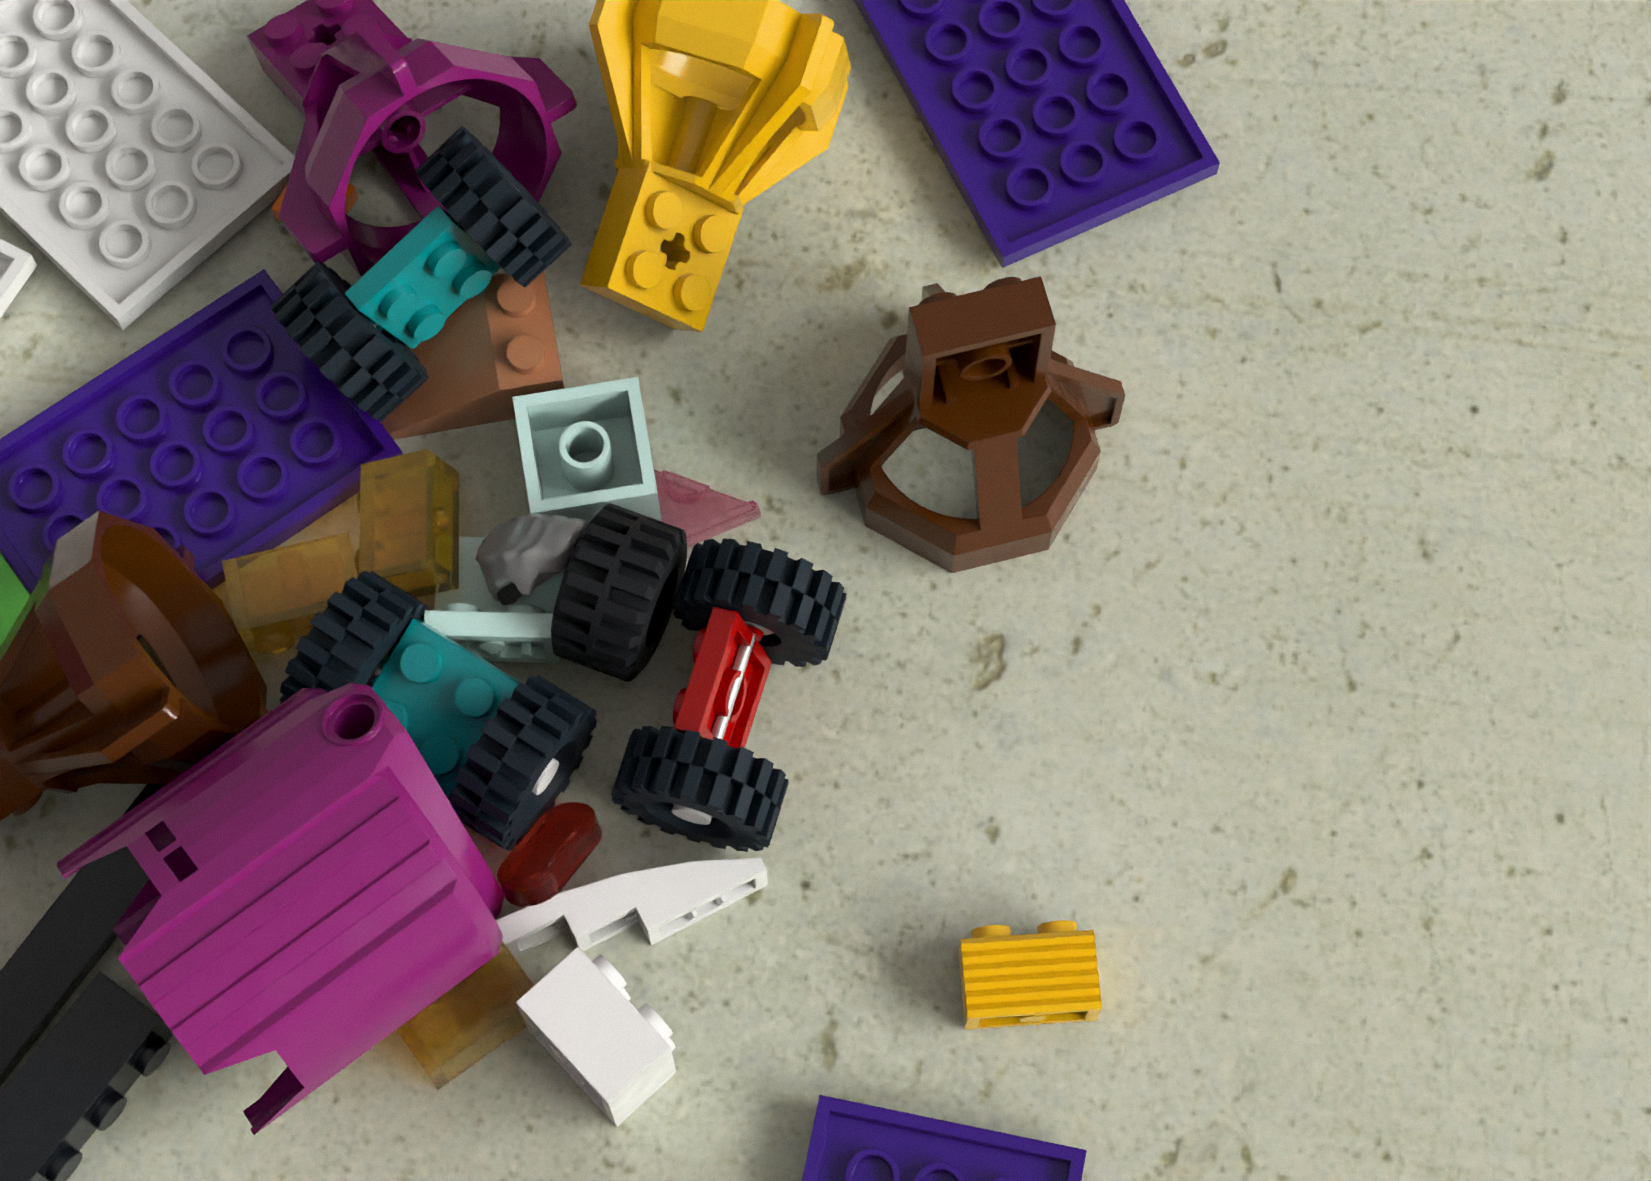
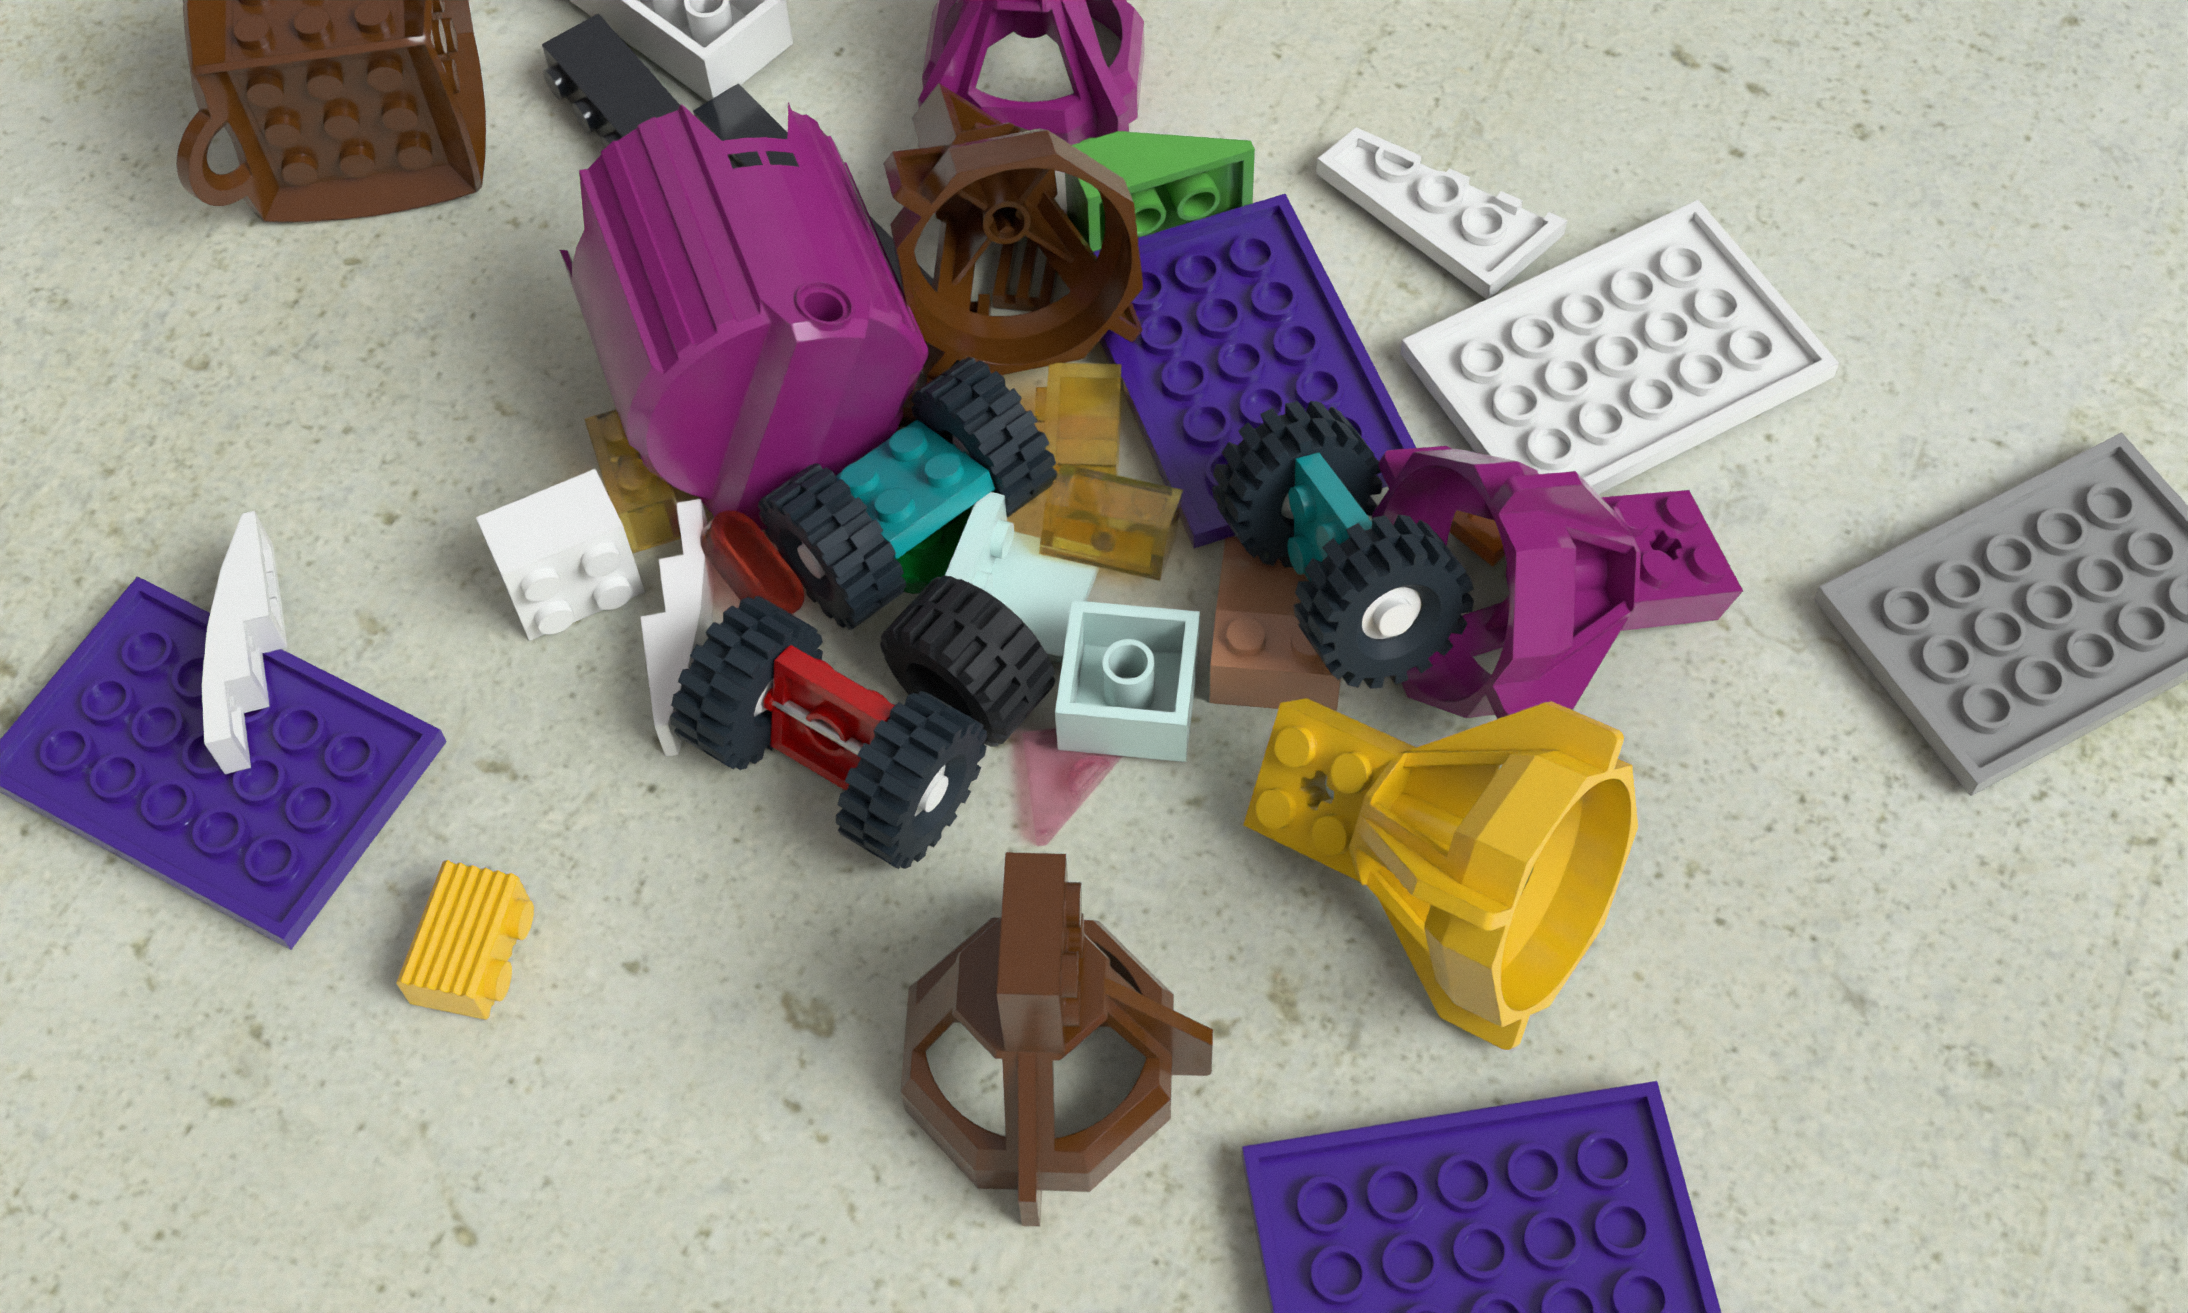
camera: 110 degrees right, 10 degrees down
(527, 553) = (1034, 588): light grey hair -> none

